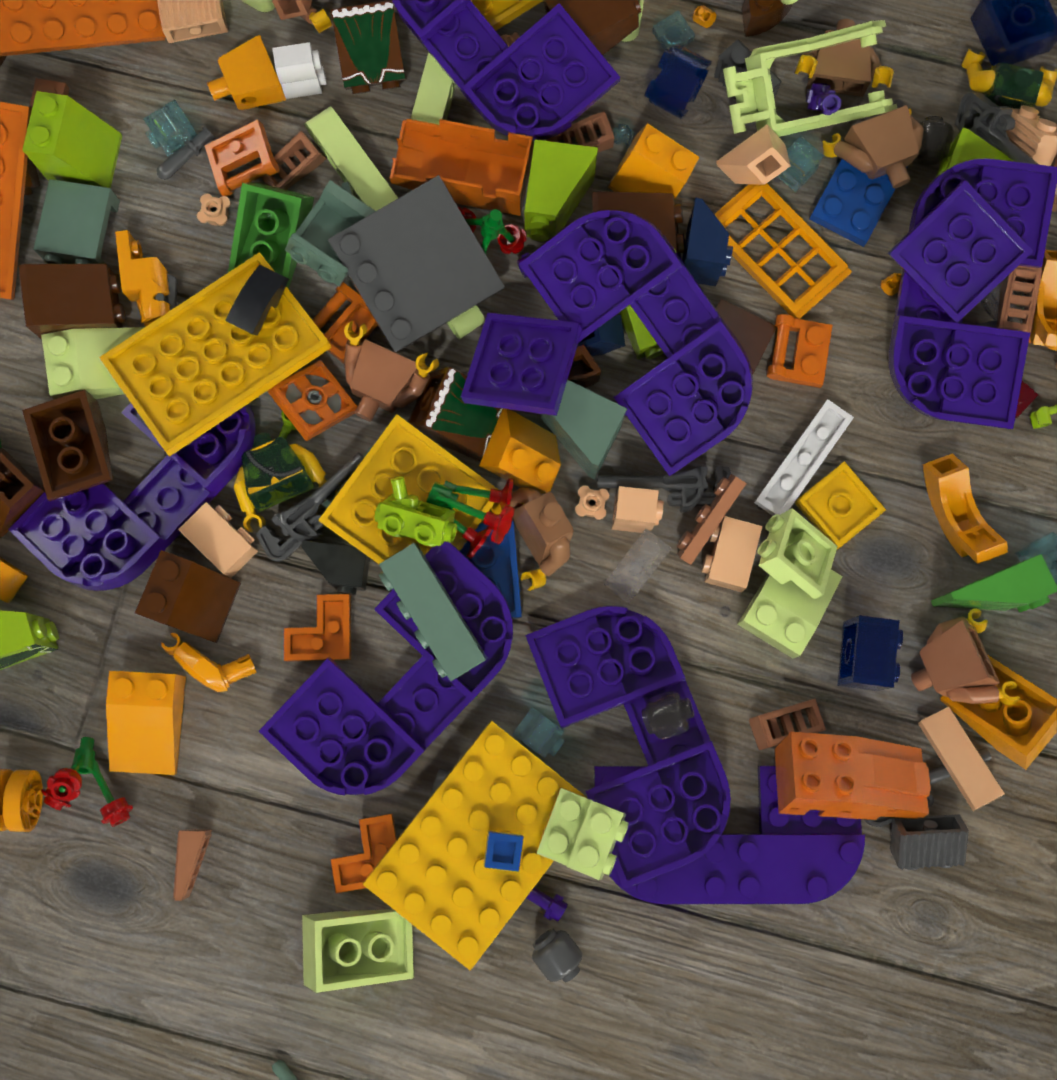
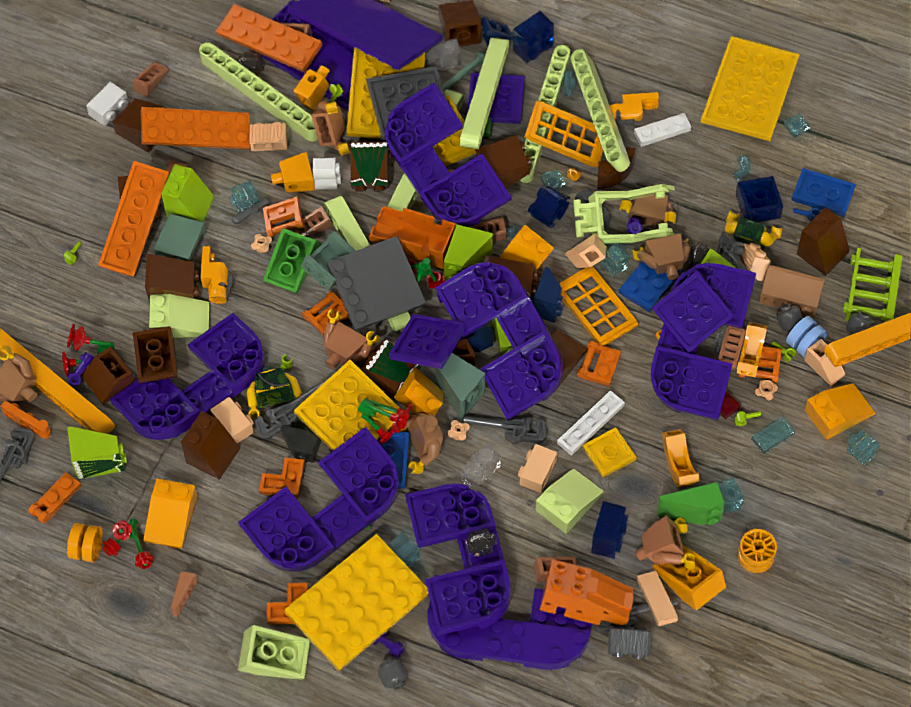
camera: 10 degrees right, 20 degrees down
(200, 369) = (249, 317): yellow plate -> none
(207, 671) = (211, 488): light orange arm -> none
(255, 299) = (279, 289): black slope -> none
(313, 400) = (301, 351): orange piece -> none
(408, 517) = (346, 411): lime brick -> none
(432, 611) = (352, 464): sand green brick -> none
(503, 851) = (370, 600): blue plate -> none
(583, 834) = (419, 598): yellowish green plate -> none
(636, 509) = (482, 431): light nougat brick -> none
(709, 518) = (526, 444): nougat plate -> none
(797, 553) = (576, 469): yellowish green plate -> none

